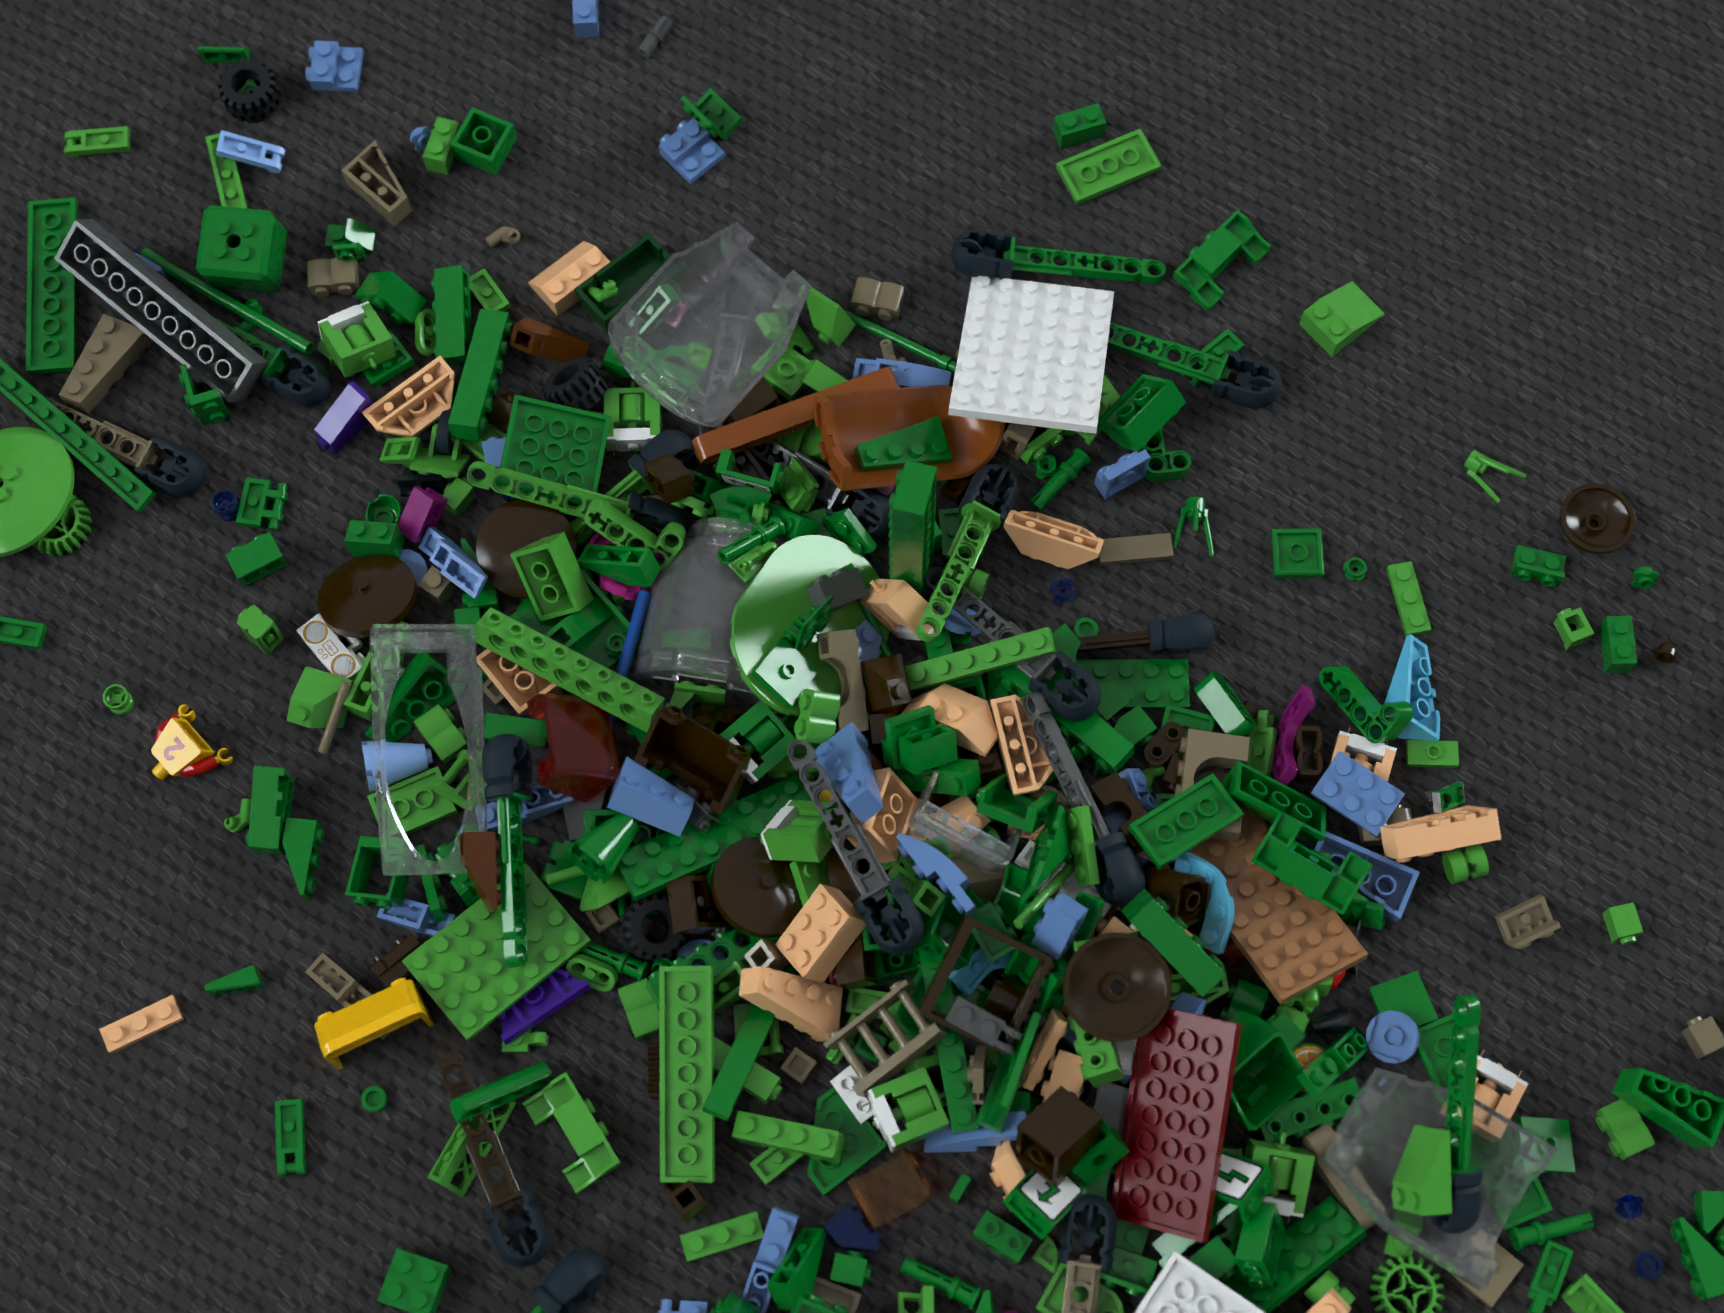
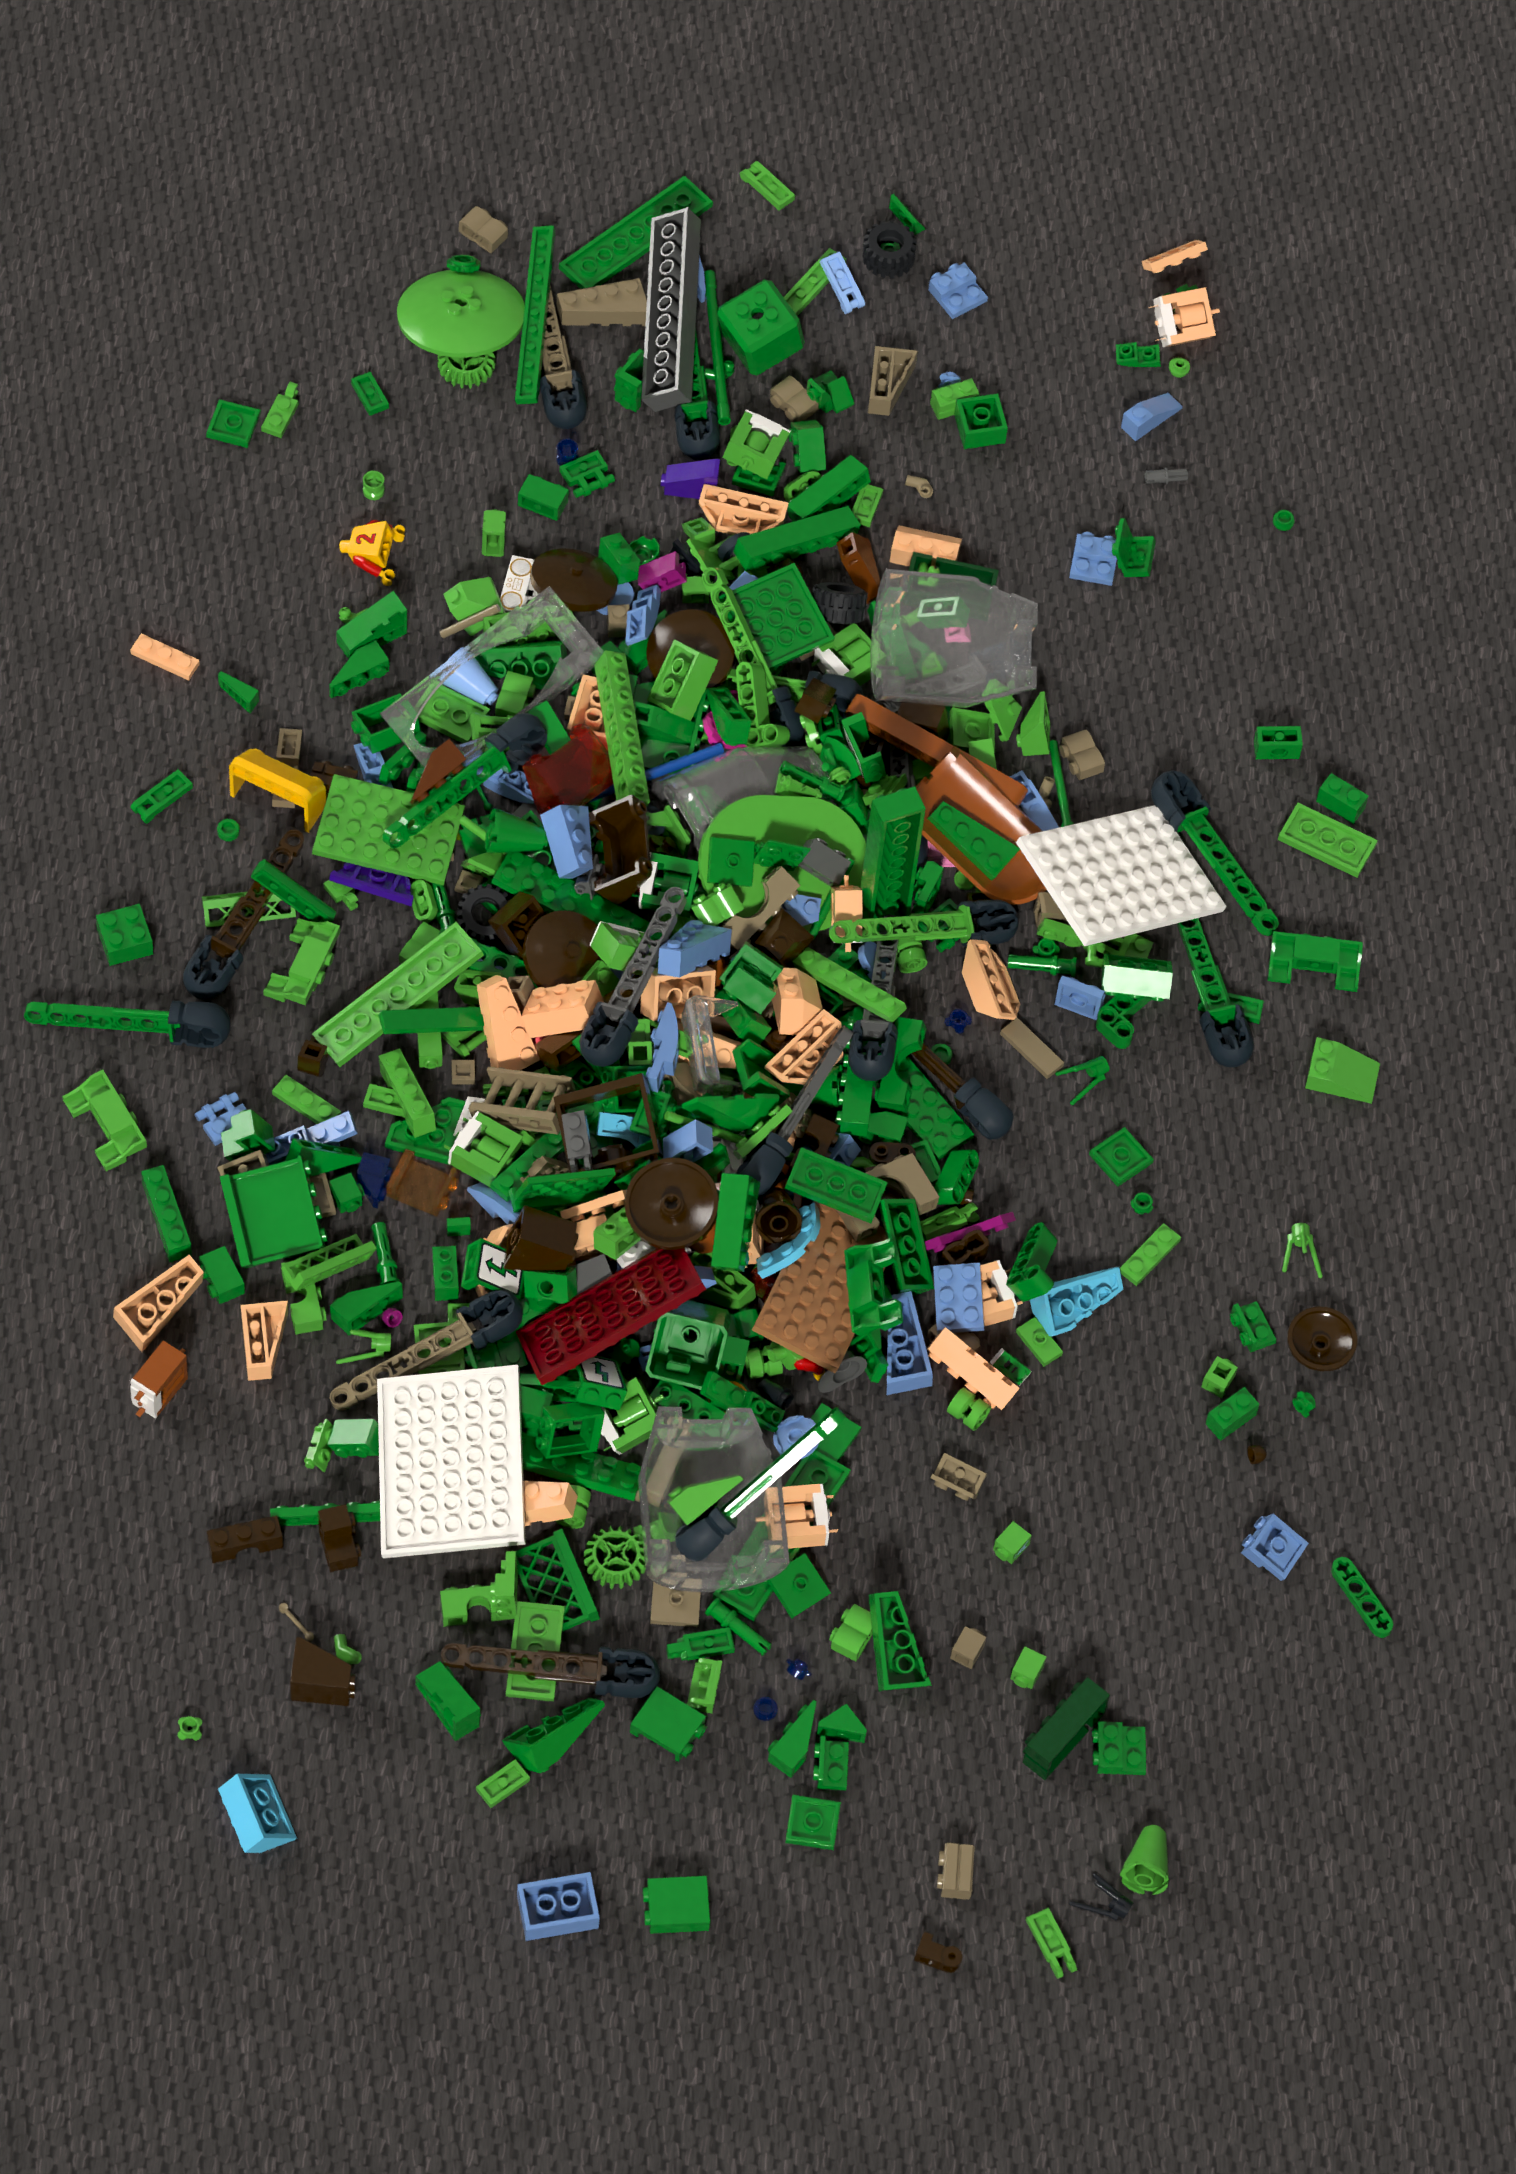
camera: 45 degrees right, 10 degrees down
(988, 136) = (1278, 742): none -> green brick

